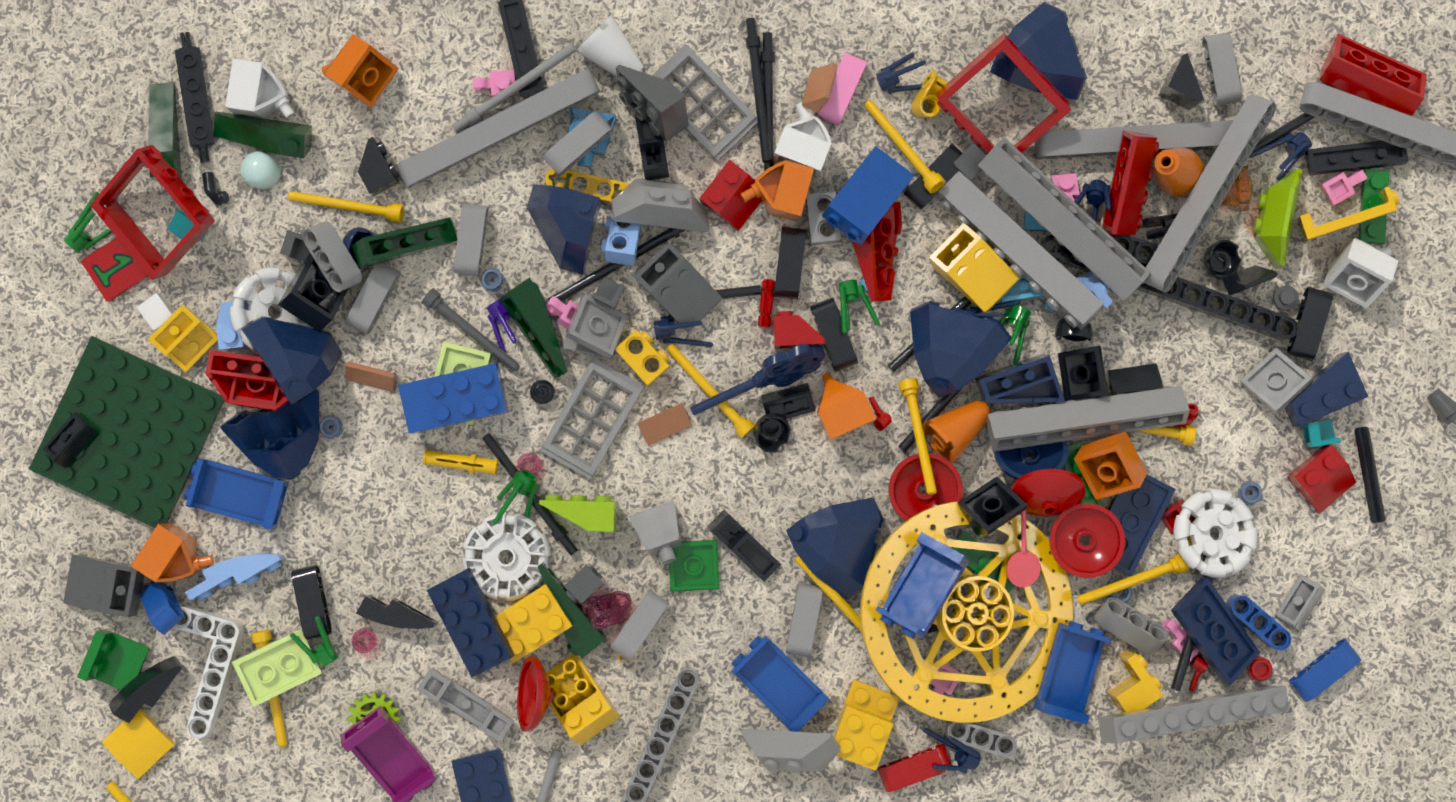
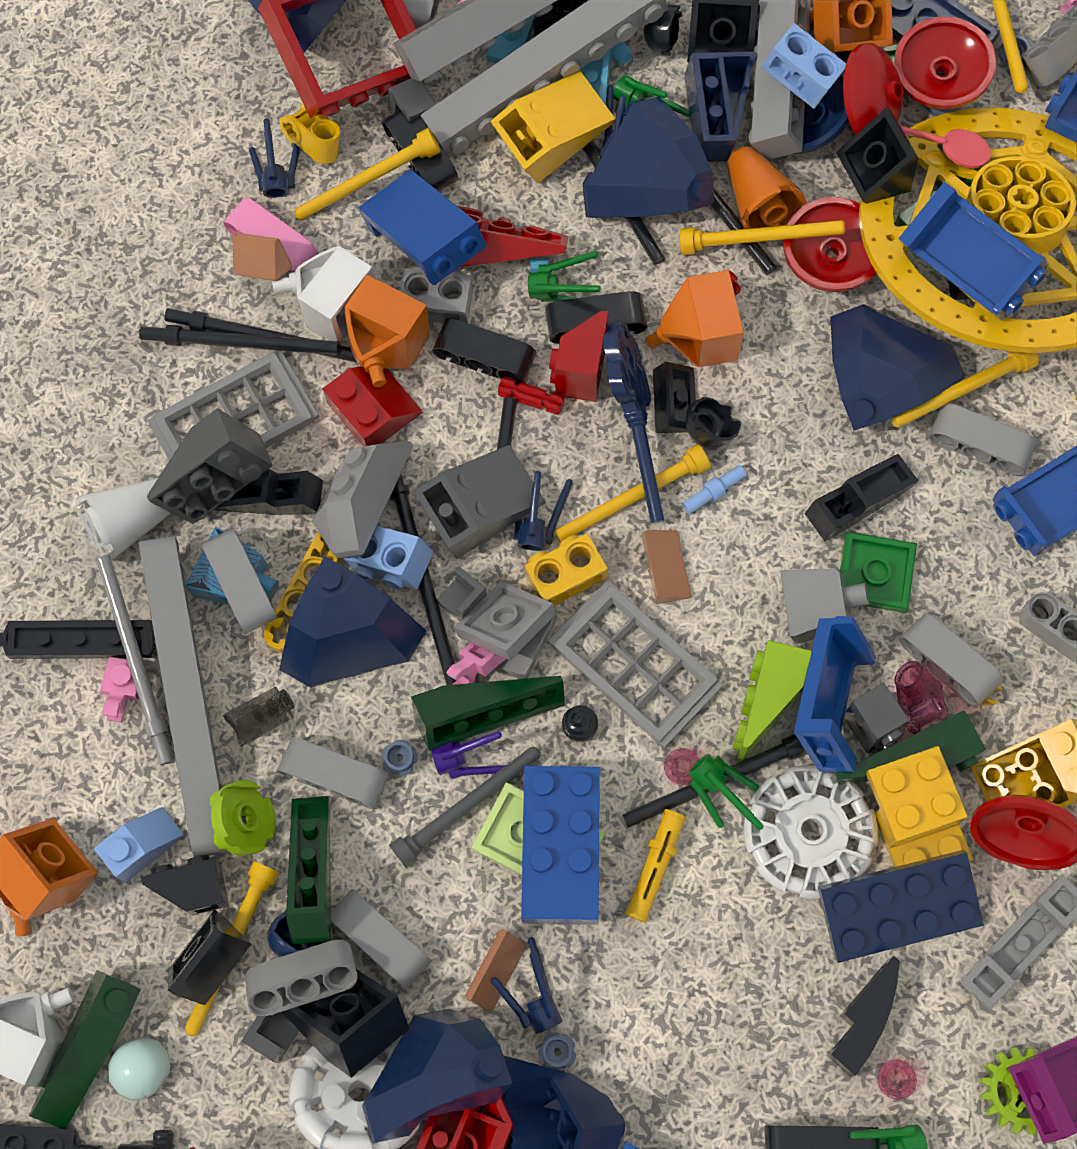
camera: 75 degrees left, 15 degrees down
(333, 192) = (207, 959): none -> black slope
(354, 411) = (541, 1010): none -> dark blue plant
(396, 128) = (138, 843): none -> light blue slope
(429, 179) = (226, 811): none -> lime plate
(495, 181) = (260, 715): none -> clear smoke hips
(592, 548) = (835, 653): none -> blue panel
(726, 444) = (714, 489): none -> light blue bar
(1042, 437) = (803, 65): none -> light blue brick

